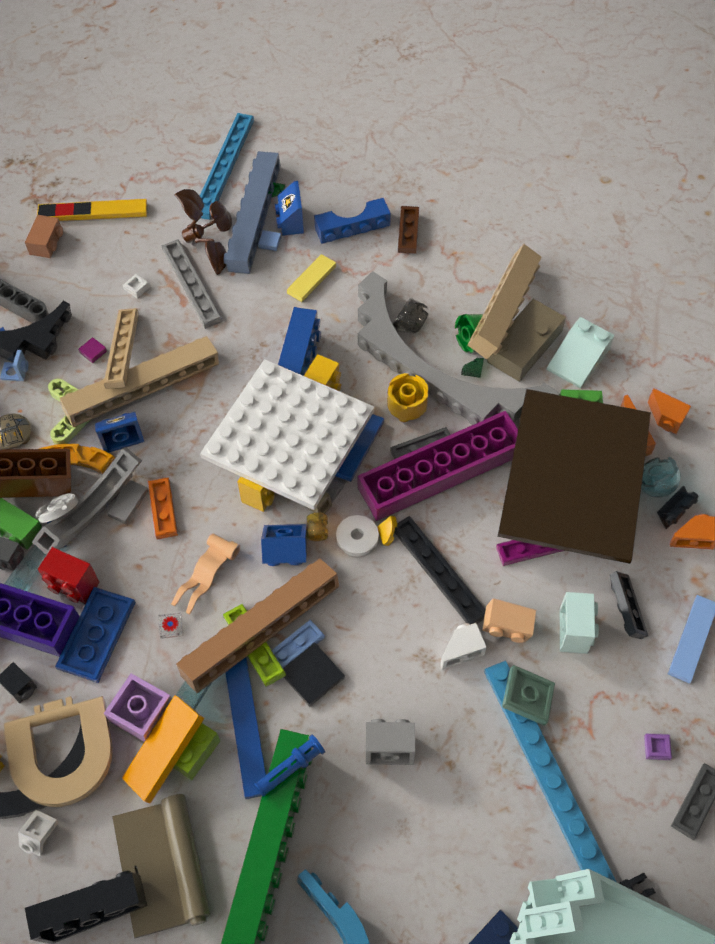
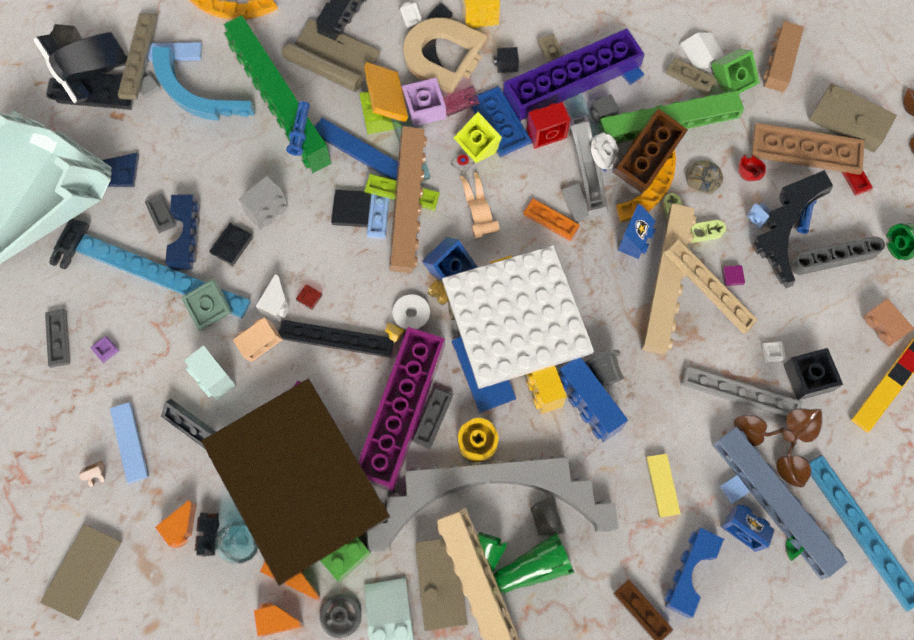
camera: 135 degrees right, 10 degrees up
(103, 678) = (461, 100): none -> clear pink plate
(134, 247) = (813, 374): none -> black brick
(136, 625) = (478, 138): none -> neon yellow slope
(264, 351) = (606, 367): none -> dark grey piece
(428, 626) = (309, 297): none -> clear red tile
(449, 295) = (538, 565): none -> green cone
(454, 743) = (231, 244): none -> black plate
(497, 846) = (160, 213): none -> dark grey tile
(511, 774) = (181, 253): none -> dark blue arch
(617, 379) = (341, 598): none -> dark grey piece

